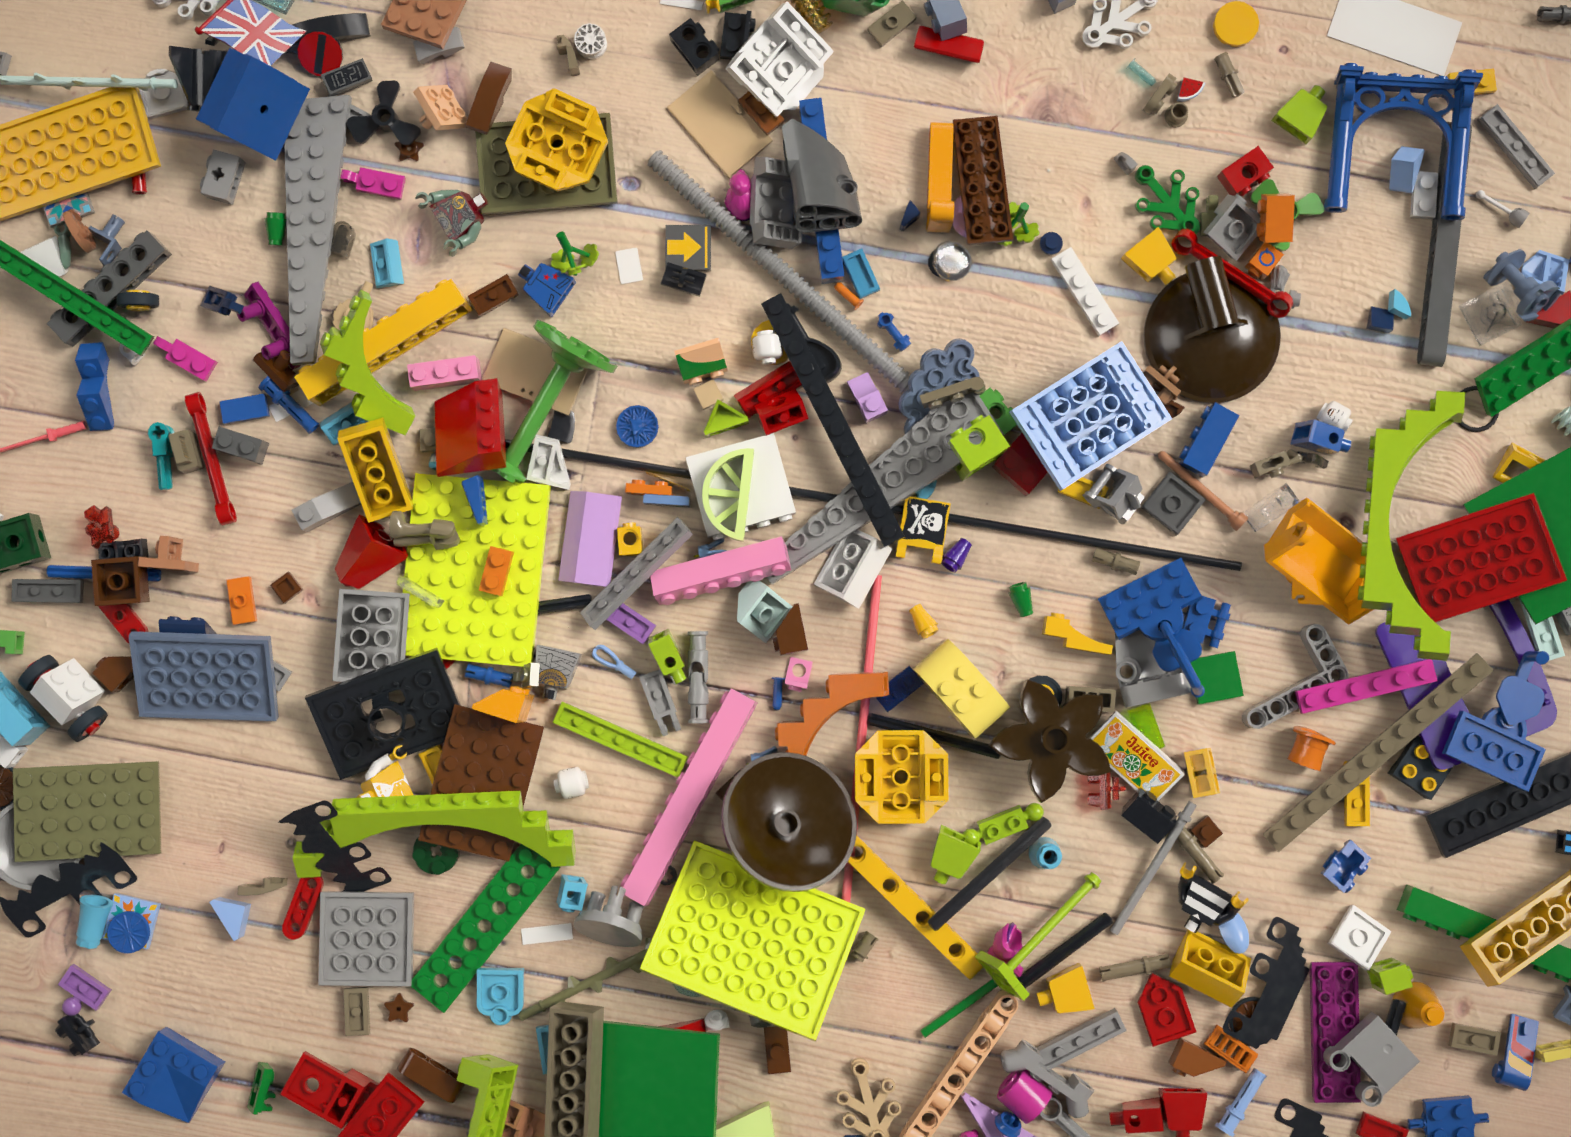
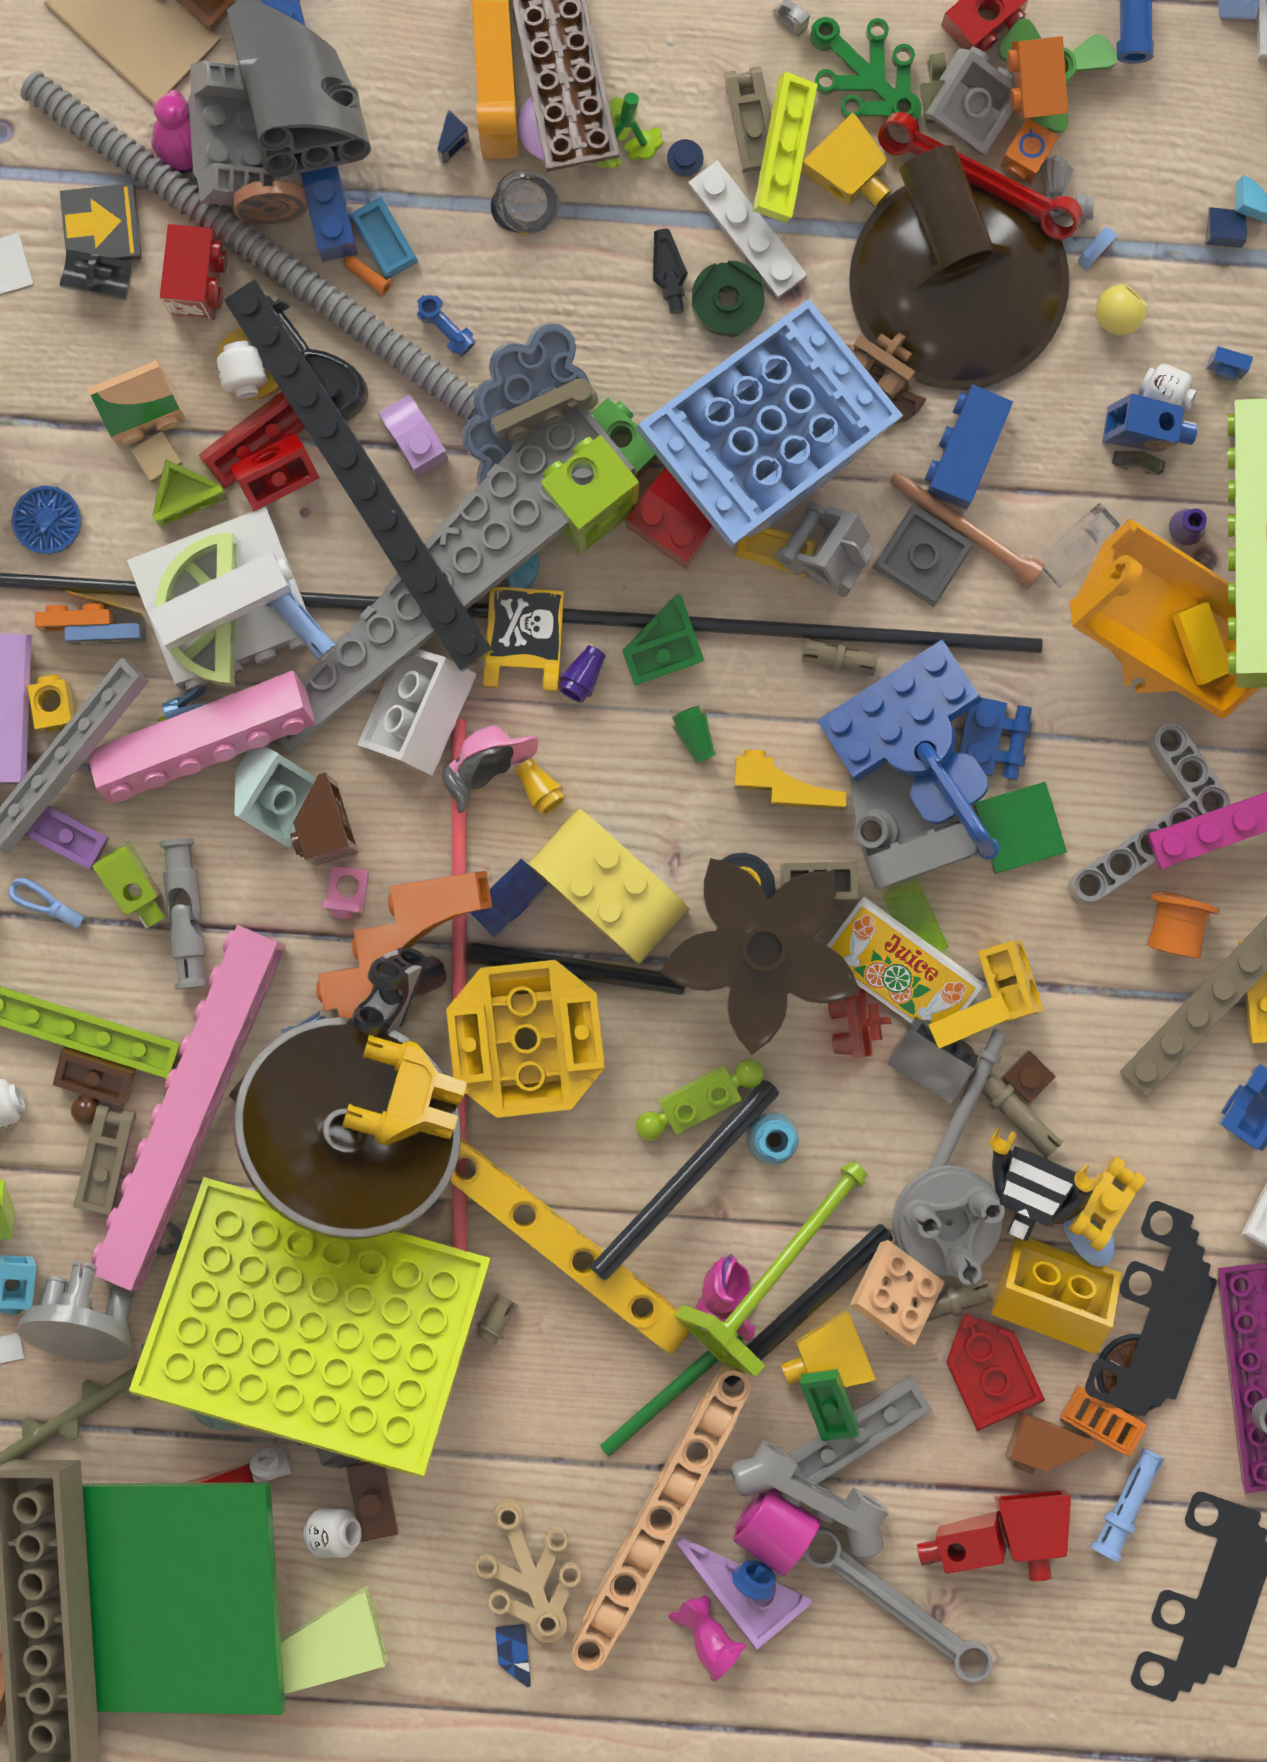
camera: 15 degrees left, 0 degrees up
(632, 773) = (93, 1079): none -> reddish brown plate
(634, 824) = (104, 1161): none -> dark tan plate
(659, 699) = (126, 957): light grey hinge -> none
(742, 284) = (192, 272): none -> red brick
(744, 490) = (221, 600): none -> white brick
(751, 1067) = (332, 1533): none -> white head
(777, 488) = (303, 624): none -> light blue pin
(777, 692) = (316, 926): blue piece -> none
(792, 247) = (270, 203): none -> nougat tile
(826, 734) = (397, 981): none -> black connector
(829, 805) = (411, 1094): none -> yellow connector
(891, 599) = (483, 757): none -> hair
(952, 854) = (622, 1156): lime torso -> none
(1008, 542) = (663, 644): none -> green wing
(1034, 311) = (669, 270): none -> black piece
(1065, 1021) = (829, 1405): none -> green plate
(1069, 319) = (726, 277): none -> dark green plate
(1094, 224) = (749, 116): none -> dark tan plate
(1102, 959) = (878, 1297): none -> light nougat plate
(1114, 244) = (785, 147): none -> neon yellow plate
(1148, 917) = (949, 1221): none -> light grey piece
(1175, 795) = (969, 1021): none -> yellow sticker
(1247, 916) = (1107, 1204): none -> yellow plate
(1275, 464) = (1079, 474): dark tan piece -> none
(1299, 325) = (1098, 248): none -> light blue tile
(1310, 365) = (1120, 310): none -> light yellow piece
(1334, 502) = (1181, 529): none -> cone
(1341, 576) = (1202, 643): none -> yellow tile
(1374, 405) = (1229, 363): none -> blue plate

